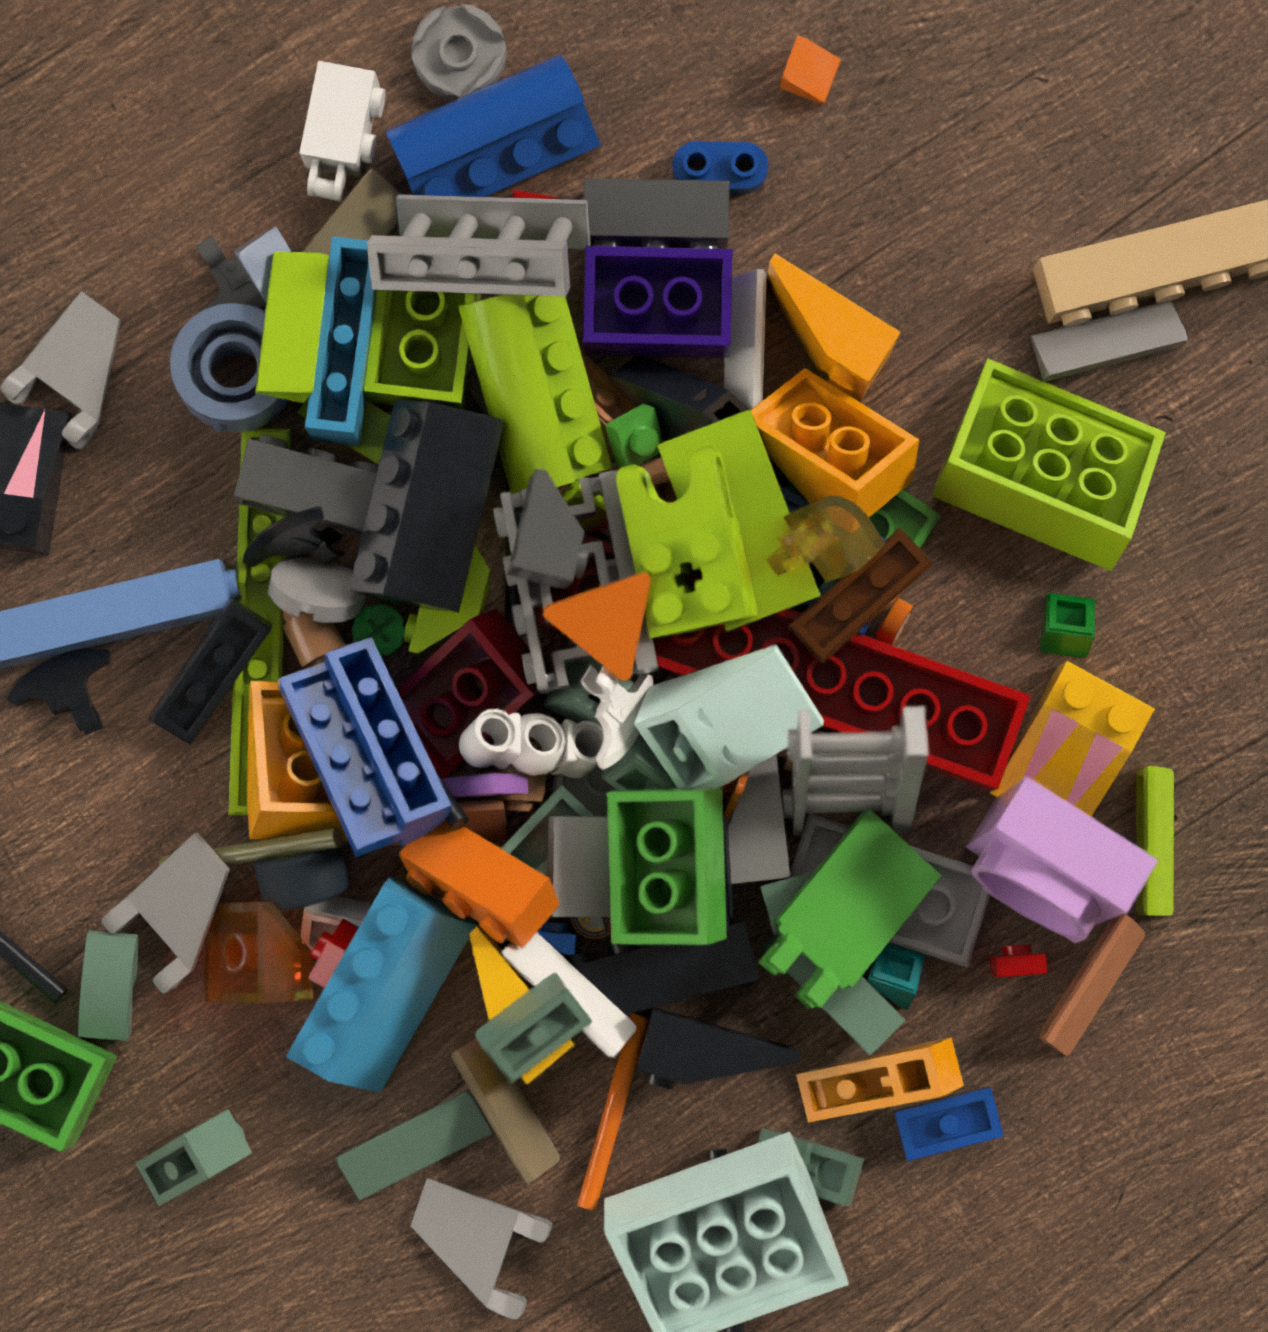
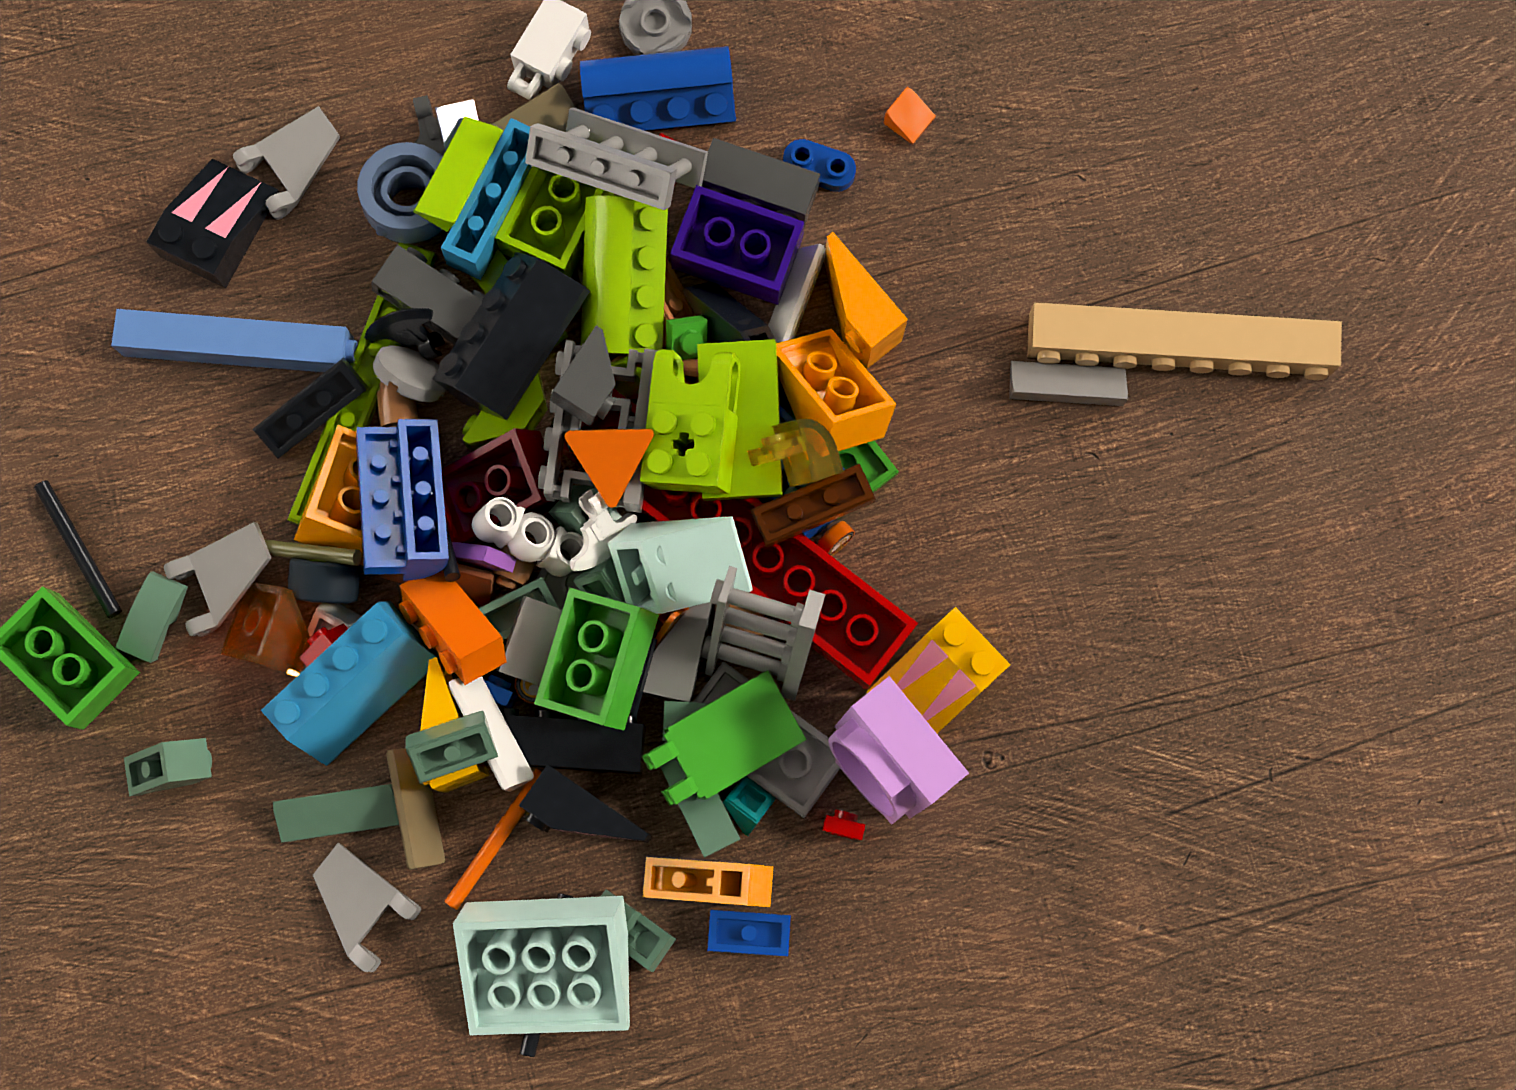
camera: 15 degrees right, 5 degrees down
(64, 686) = (201, 387): black piece -> none
(384, 627) = (450, 418): green piece -> none
(1050, 465) = (991, 459): lime slope -> none
(1068, 625) = (967, 585): green slope -> none
(1091, 984) = (896, 863): nougat slope -> none
(1156, 838) = (982, 769): lime slope -> none

